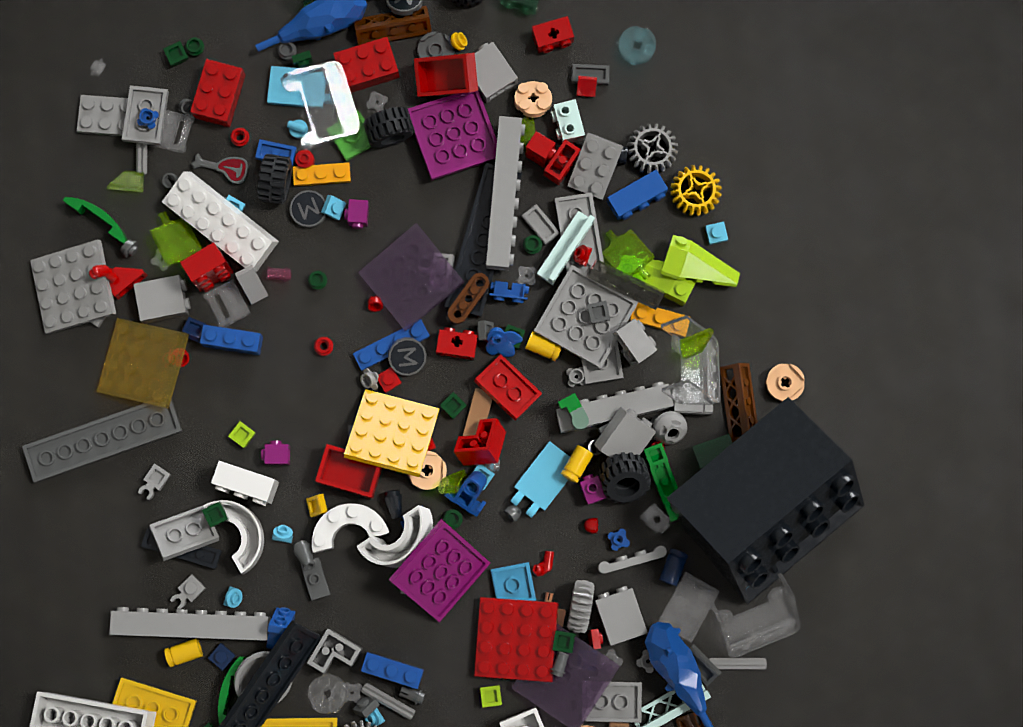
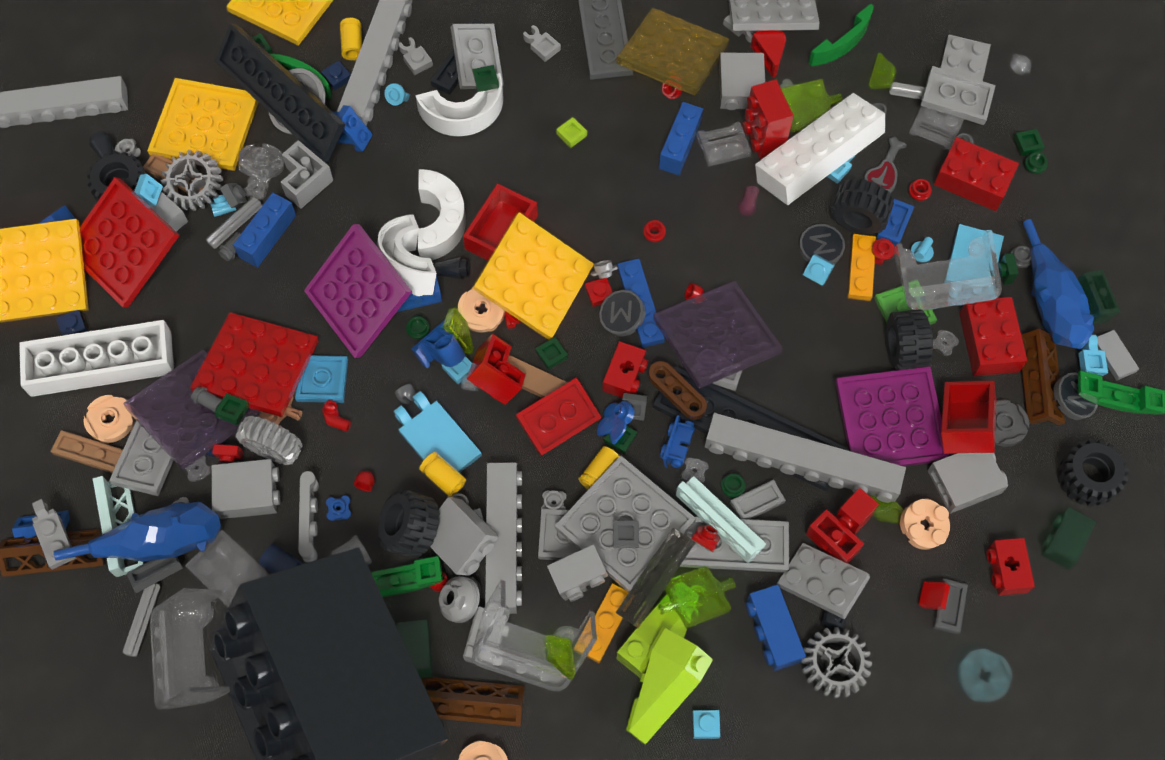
camera: 105 degrees right, 15 degrees down
(101, 271) = (782, 20): red arm -> none
(129, 248) = (805, 61): dark grey plate -> none
(147, 113) = (956, 87): blue plate -> none
(193, 328) = (704, 101): dark blue plate -> none
(244, 483) = (515, 119): white brick -> none
(251, 284) = (740, 166): light grey tile -> none
(276, 453) = (540, 161): magenta brick -> none
(283, 533) = (450, 153): medium azure plate -> none
(304, 554) = (414, 164): dark grey cone -> none
(316, 505) = (472, 189): yellow tile -> none
(316, 581) = (391, 176): dark grey plate -> none
(317, 280) = (734, 239): dark green plate -> none
(357, 213) = (806, 293): magenta brick -> none
(458, 41) = (1013, 449): yellow plate -> none
(491, 696) = (201, 327): lime plate -> none
(568, 121) = (888, 561): light aqua brick -> none
(576, 411) = (506, 481): leg -> none
(592, 489) = (409, 482): magenta brick -> none
(699, 198) = (771, 718): yellow gear -> none

